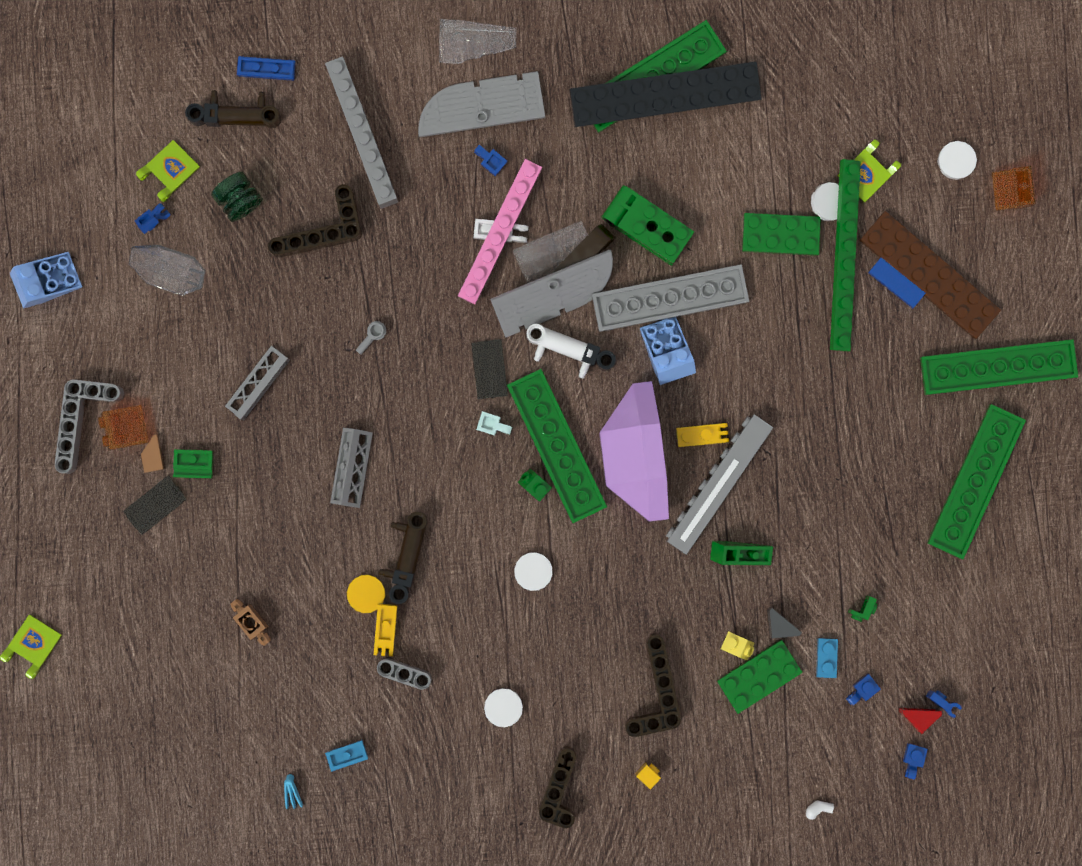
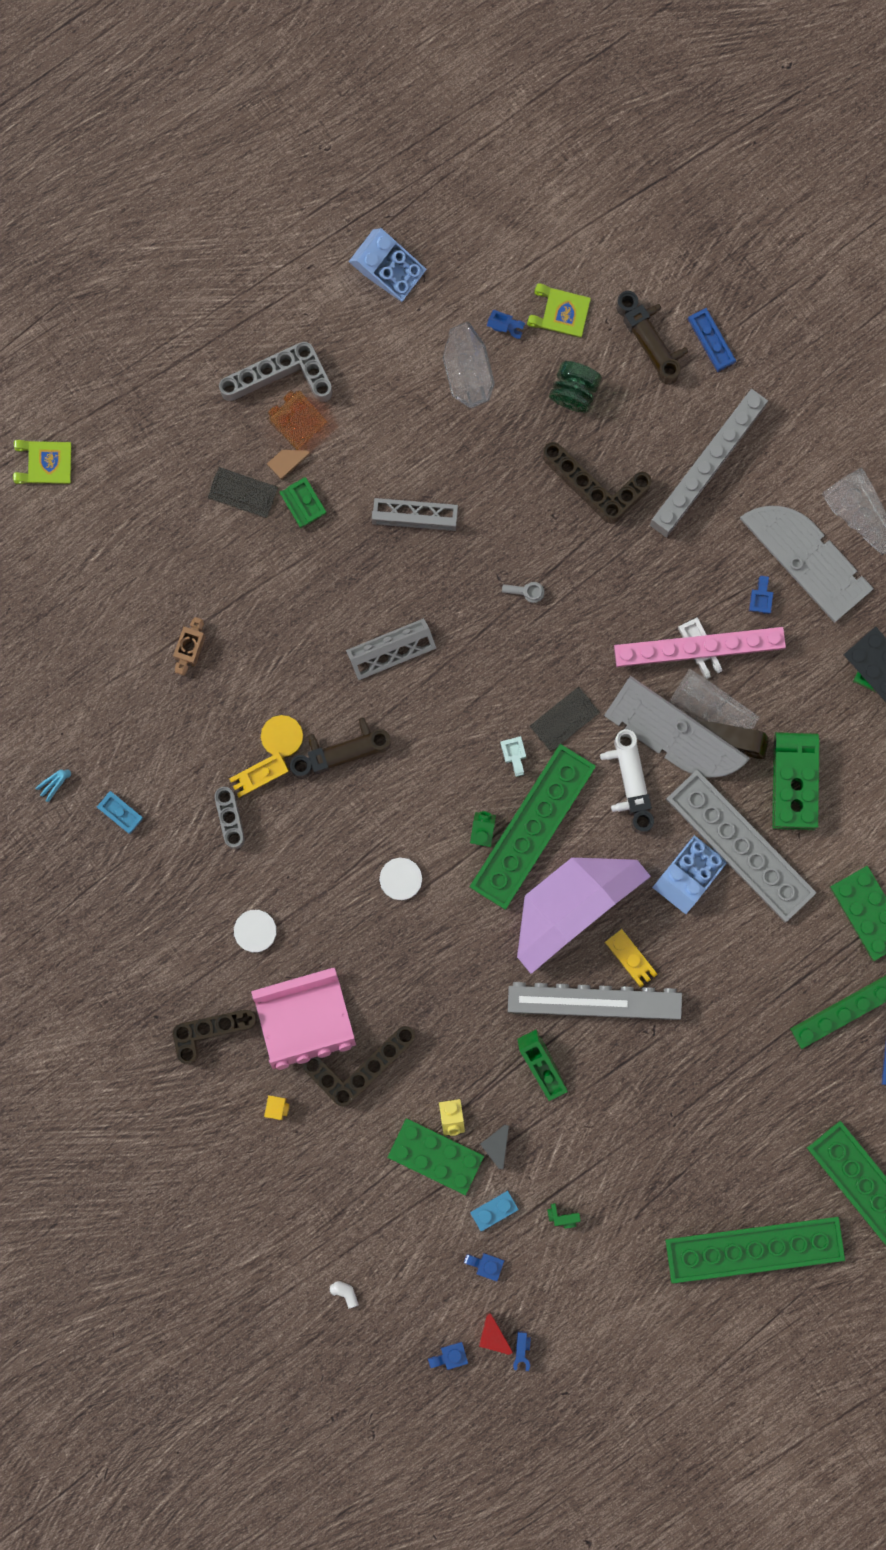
camera: 60 degrees right, 5 degrees down
(595, 712) = (304, 1019): none -> bright pink panel

